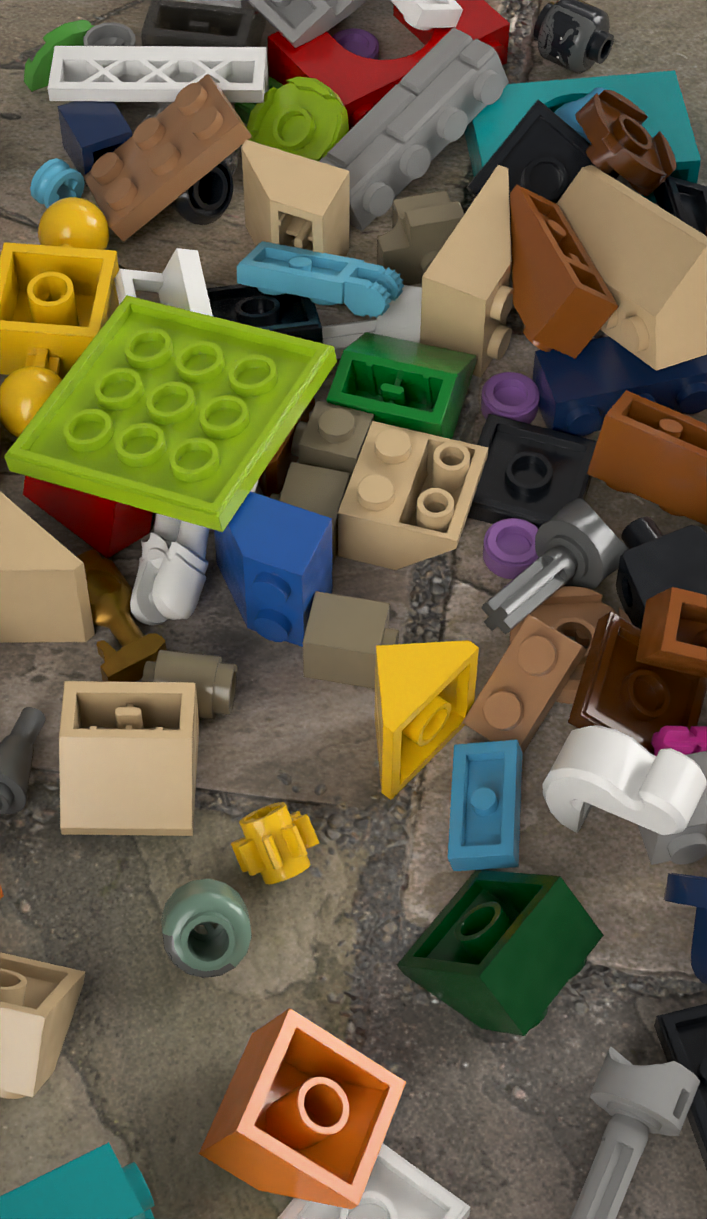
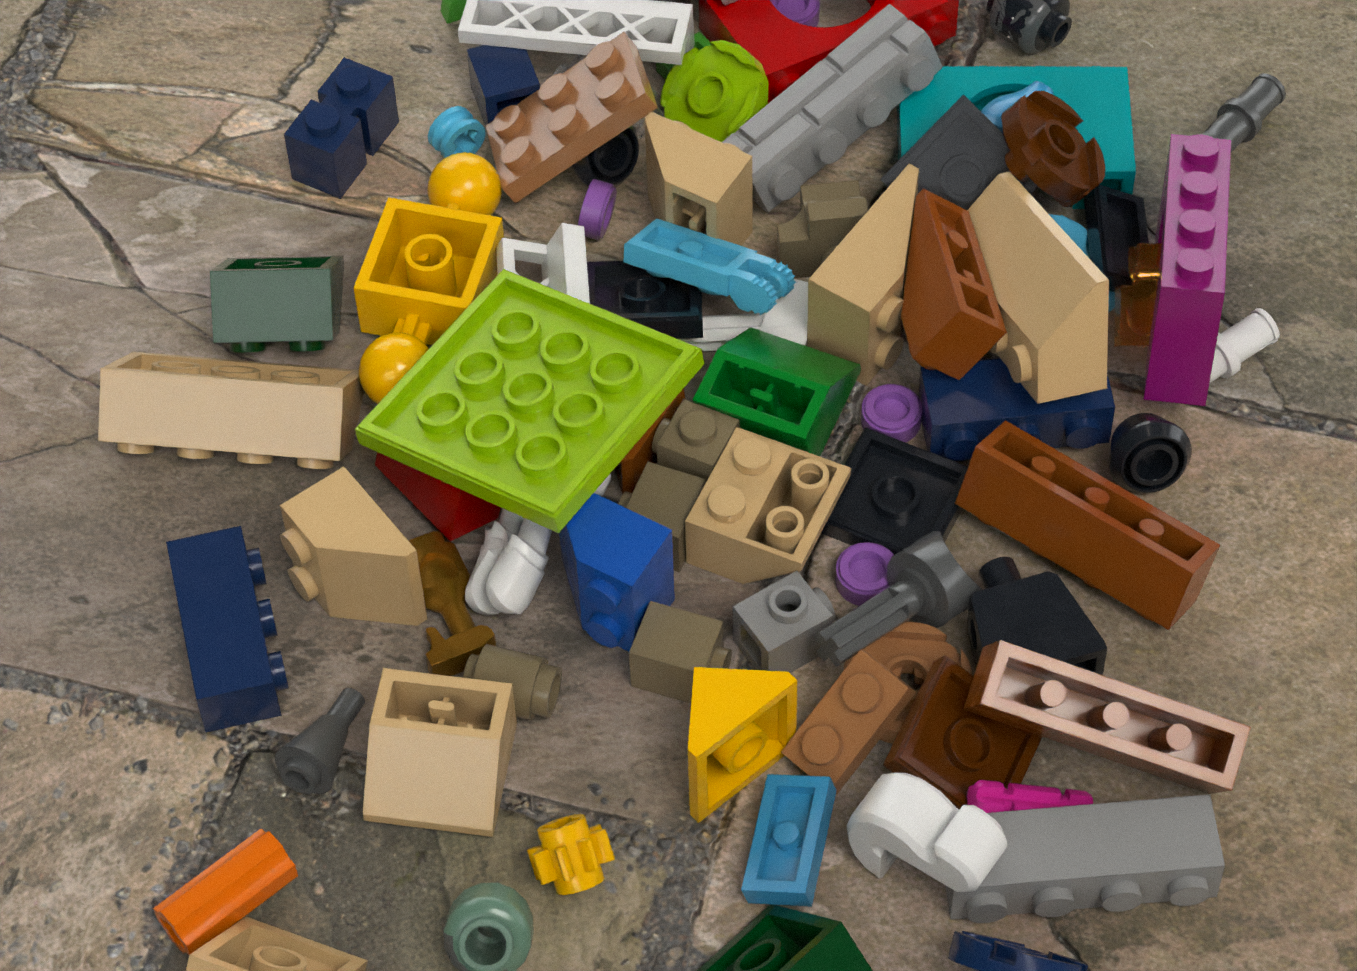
camera: 10 degrees right, 0 degrees up
(203, 237) = (597, 208): none -> medium lavender tile
(443, 600) = (780, 624): none -> light grey brick

